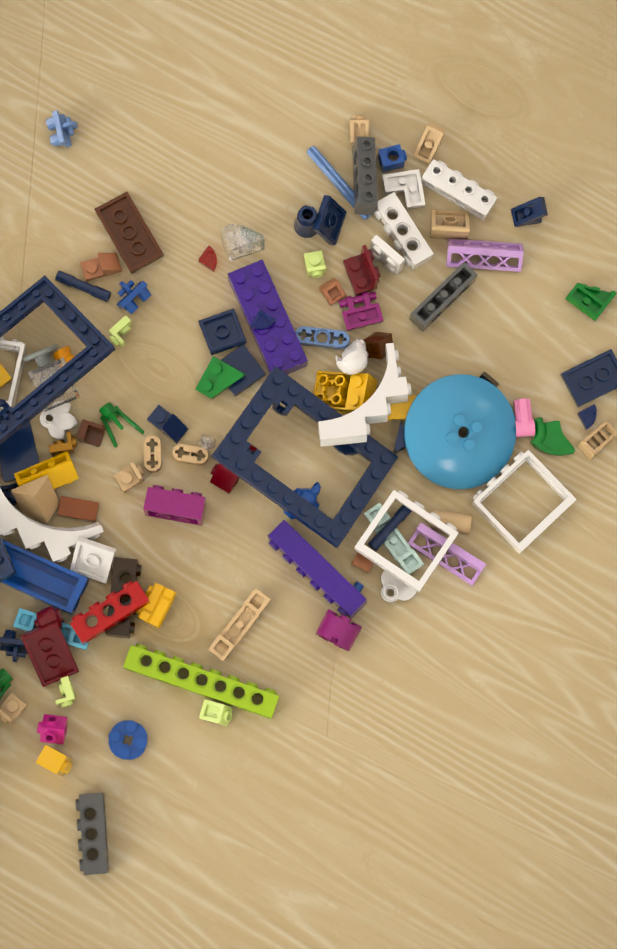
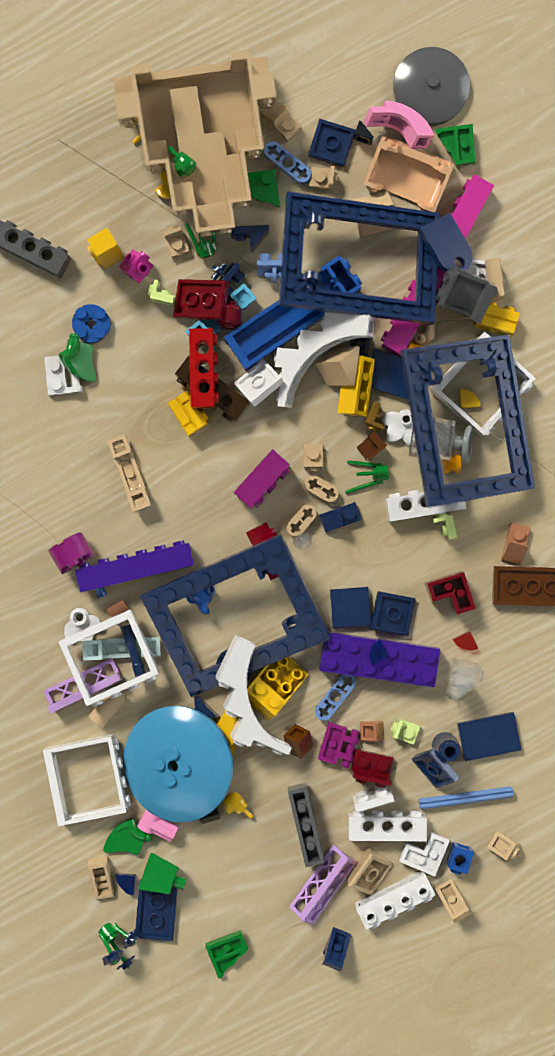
camera: 125 degrees right, 10 degrees up
(78, 509) = (312, 397): dark orange tile -> none
(94, 291) = (497, 524): dark blue piece -> none
(135, 378) = (395, 512): none -> white brick
(138, 652) = (45, 452): lime brick -> none
(139, 290) = (473, 563): blue hips -> none
(165, 730) = (78, 358): none -> green arm
(169, 293) = (452, 586): none -> dark red brick
(191, 742) = (57, 378): none -> white plate
(216, 713) = (68, 409): yellowish green bracket -> none
(217, 378) = (353, 584): green wing -> none
(276, 194) = (489, 736): none -> dark blue tile
(353, 358) = (298, 712): white hair -> none
(364, 176) = (457, 824): dark grey brick -> none
(463, 363) = (236, 803): none -> yellow piece
(562, 389) = (161, 876): none -> green torso

